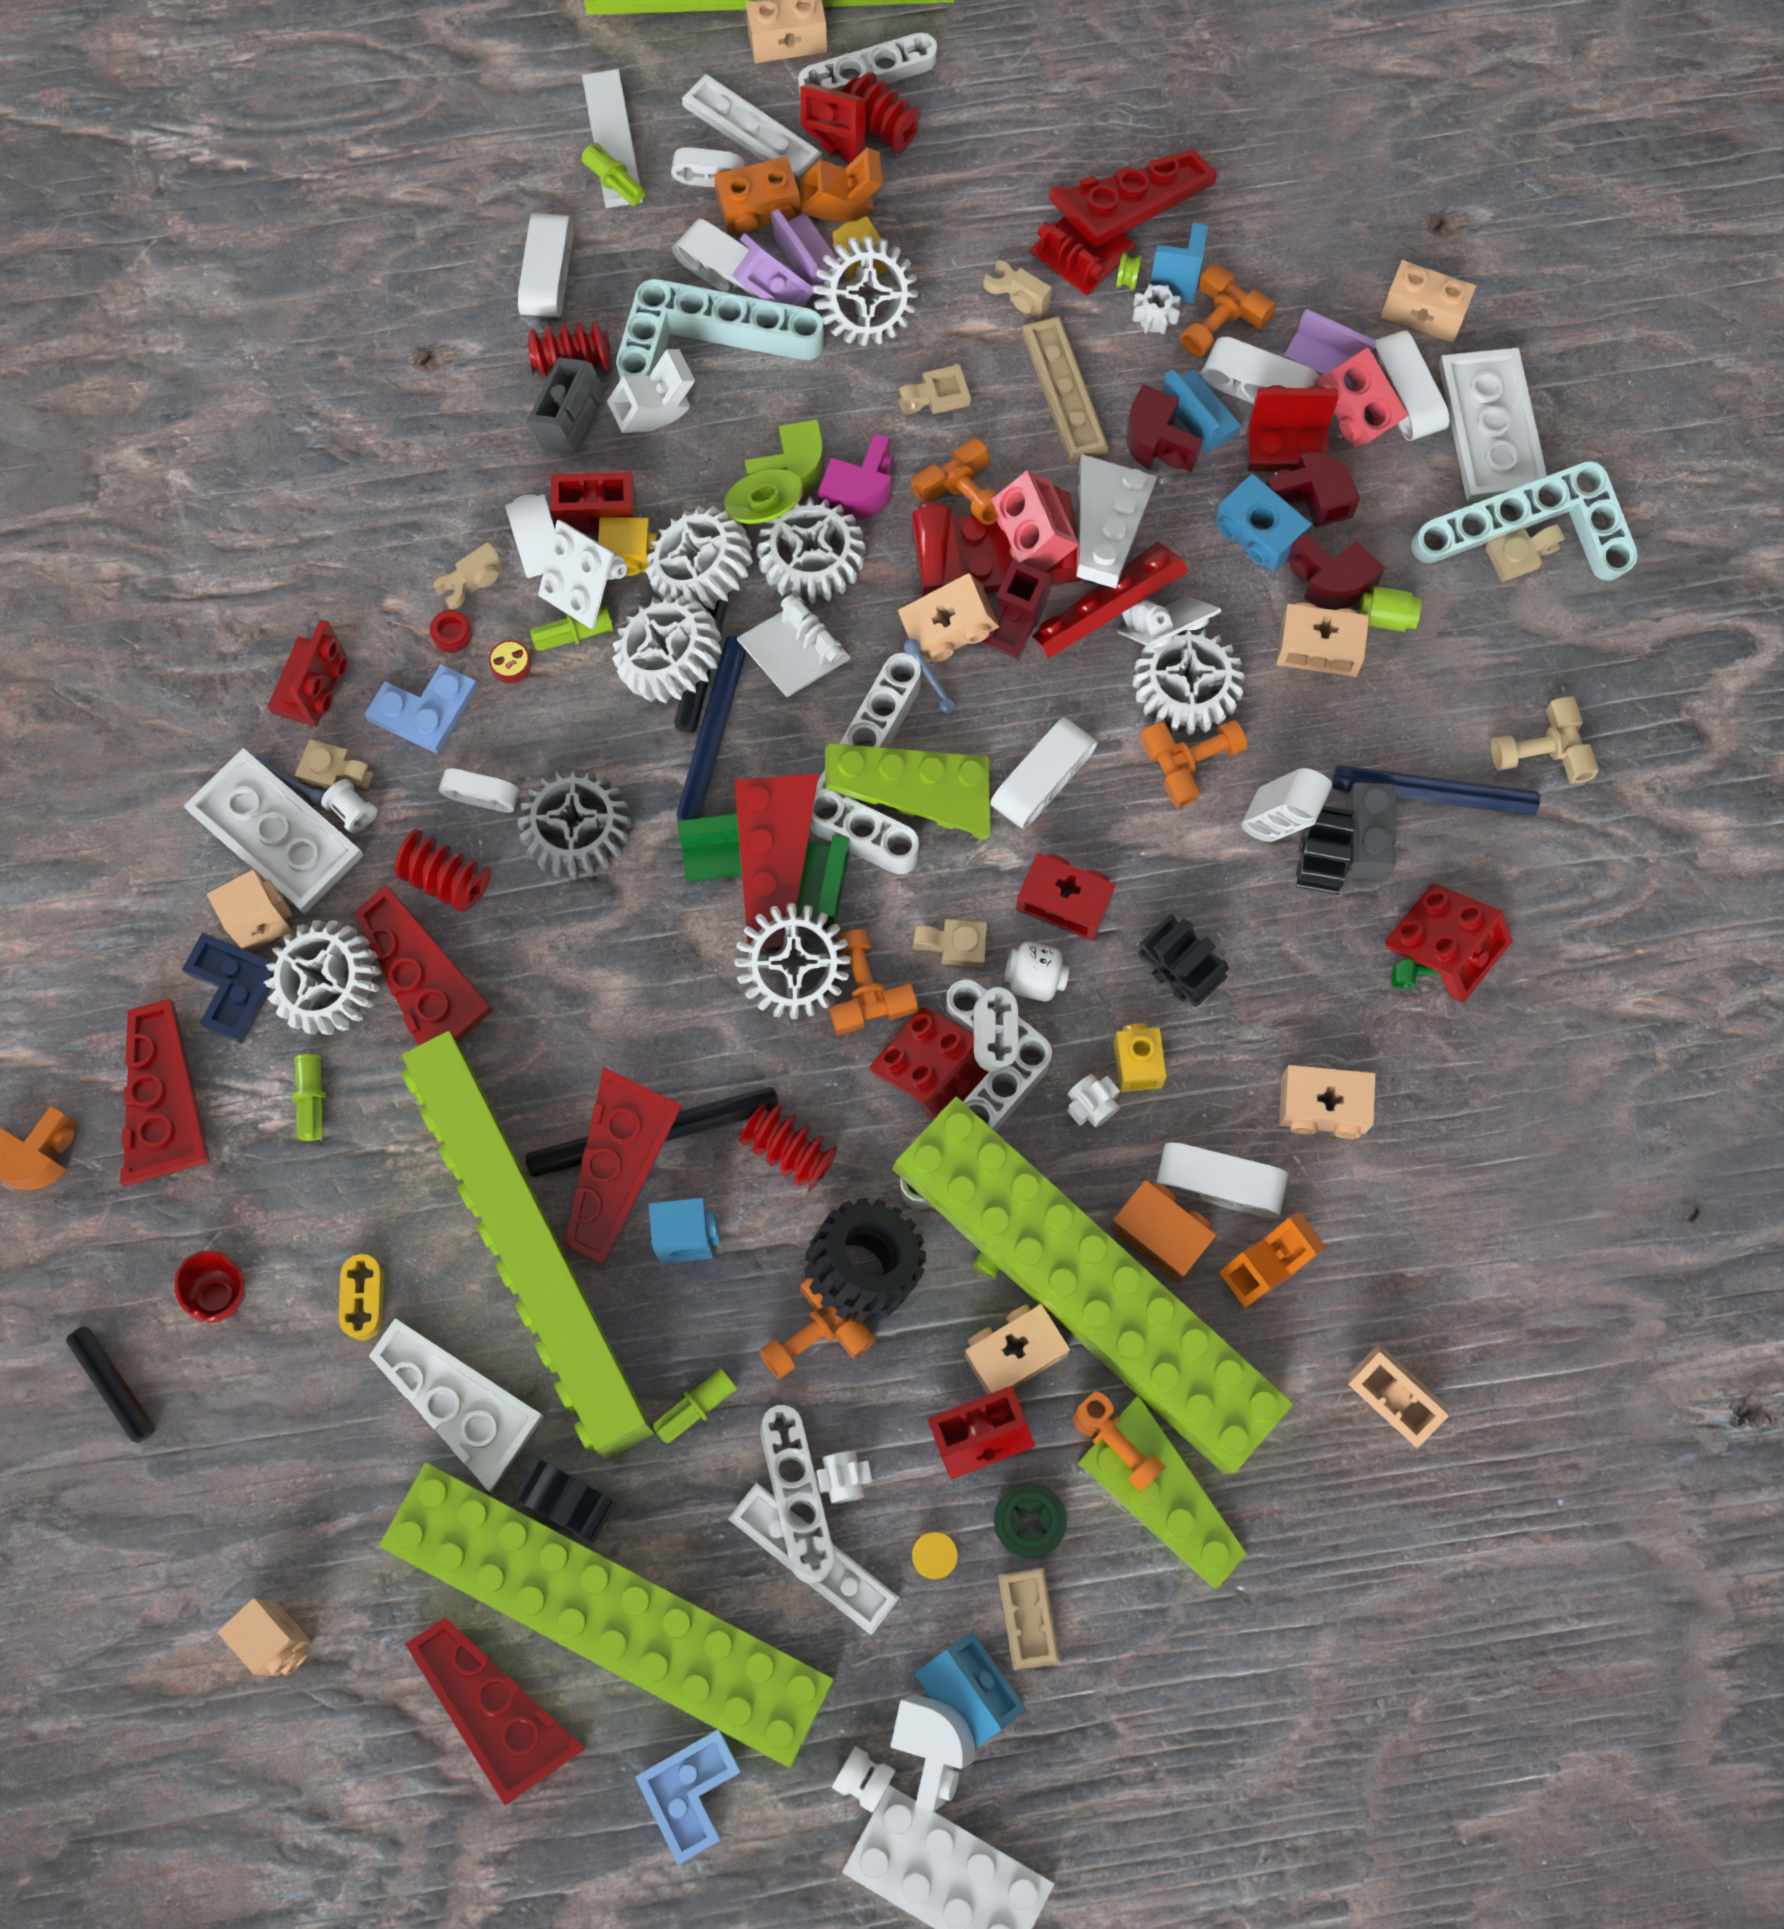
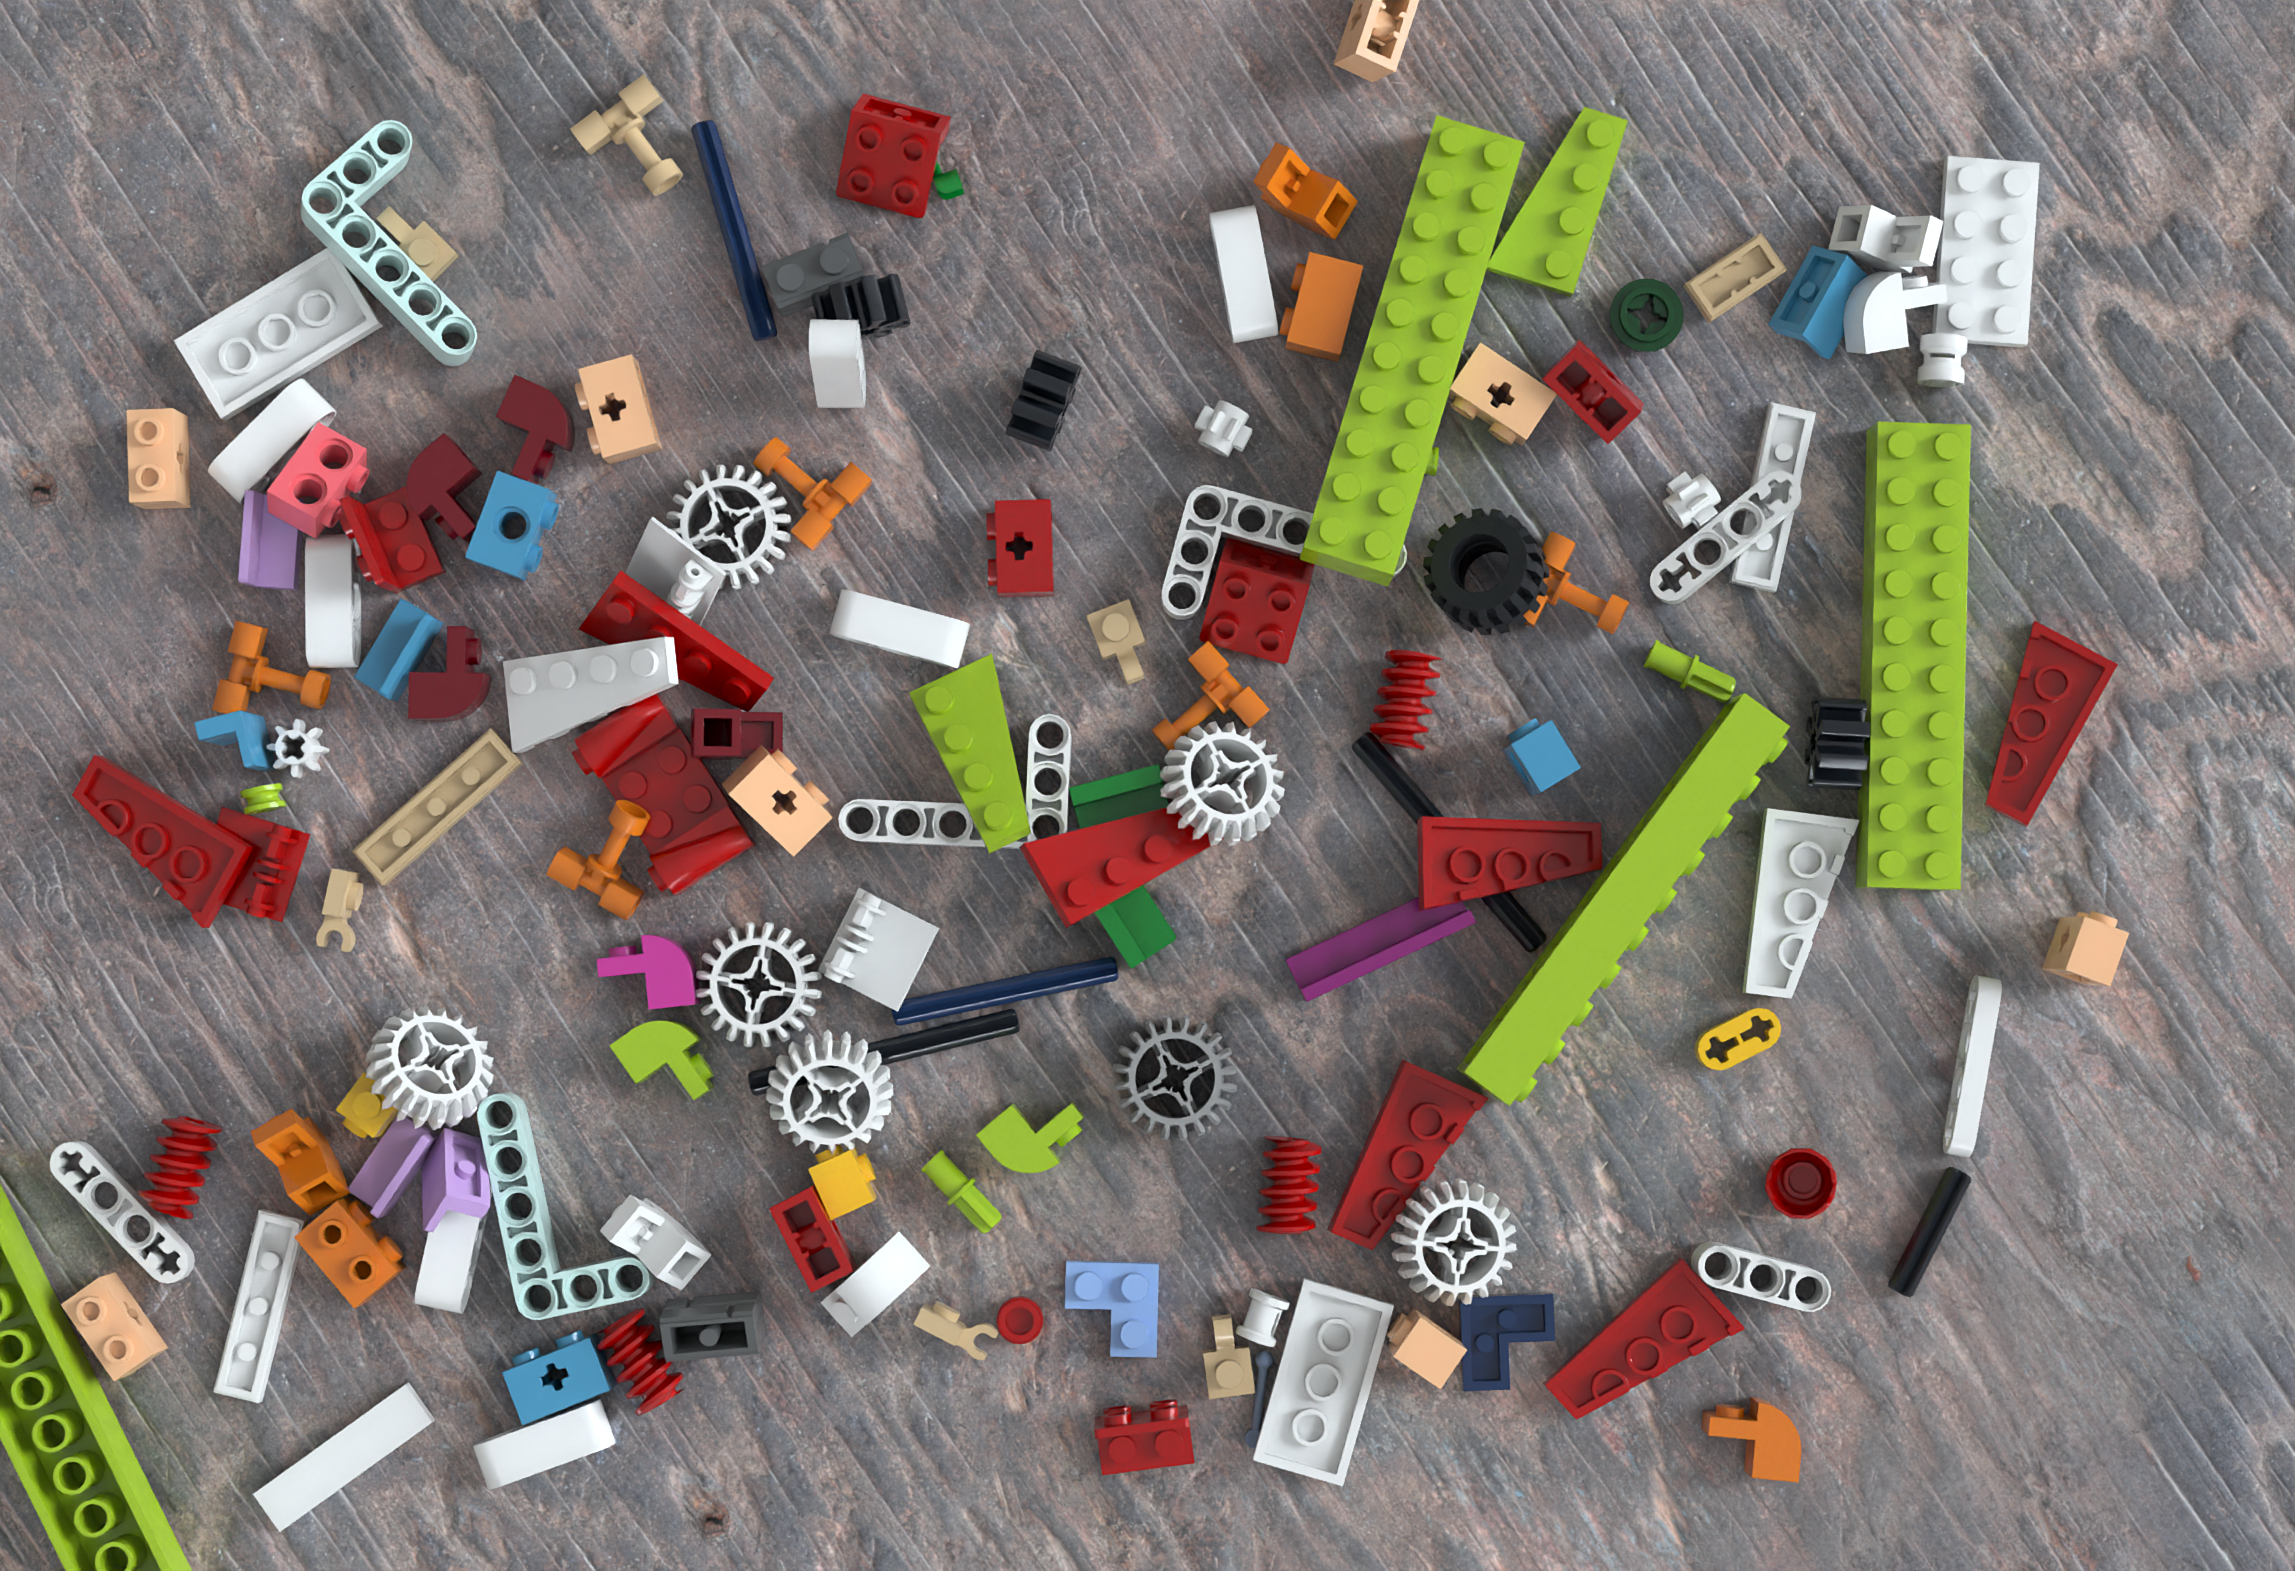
camera: 115 degrees left, 15 degrees up
(133, 1226) = (1782, 1282): none -> white beam
(226, 1490) = (1972, 1066): none -> white beam
(308, 1097) = (1574, 1194): lime axle -> none
(479, 790) = (1183, 1193): white beam -> none
(510, 661) = (1026, 1239): tile -> none
(578, 573) = (907, 1206): white hinge -> none
(582, 686) = (1021, 1147): none -> lime brick
(589, 289) = (538, 1395): none -> dark azure brick
(596, 1025) = (1373, 945): none -> magenta fence
(613, 174) = (401, 1422): lime axle -> none
(644, 657) = (972, 1099): white gear -> none
(675, 1792) = (2031, 521): light blue plate -> none
(698, 165) = (339, 1327): white beam -> none
(763, 496) = (726, 1067): lime dish -> none
(834, 120) = (218, 1207): red wing -> none
(934, 1556) = (1718, 388): yellow tile -> none
(940, 389) = (503, 936): tan plate -> none
(947, 702) = (863, 764): sand blue hinge -> none
(989, 1029) = (1206, 547): white beam -> none
(1002, 1776) = (1884, 240): none -> white brick
(1034, 521) = (628, 748): coral brick -> none
(1036, 971) = (1118, 541): white head -> none
(1093, 1417) = (1536, 281): orange bar -> none
(1139, 1058) = (1158, 404): yellow brick -> none
(1348, 1091) = (1118, 233): light nougat brick -> none
(1391, 608) = (551, 354): lime brick -> none

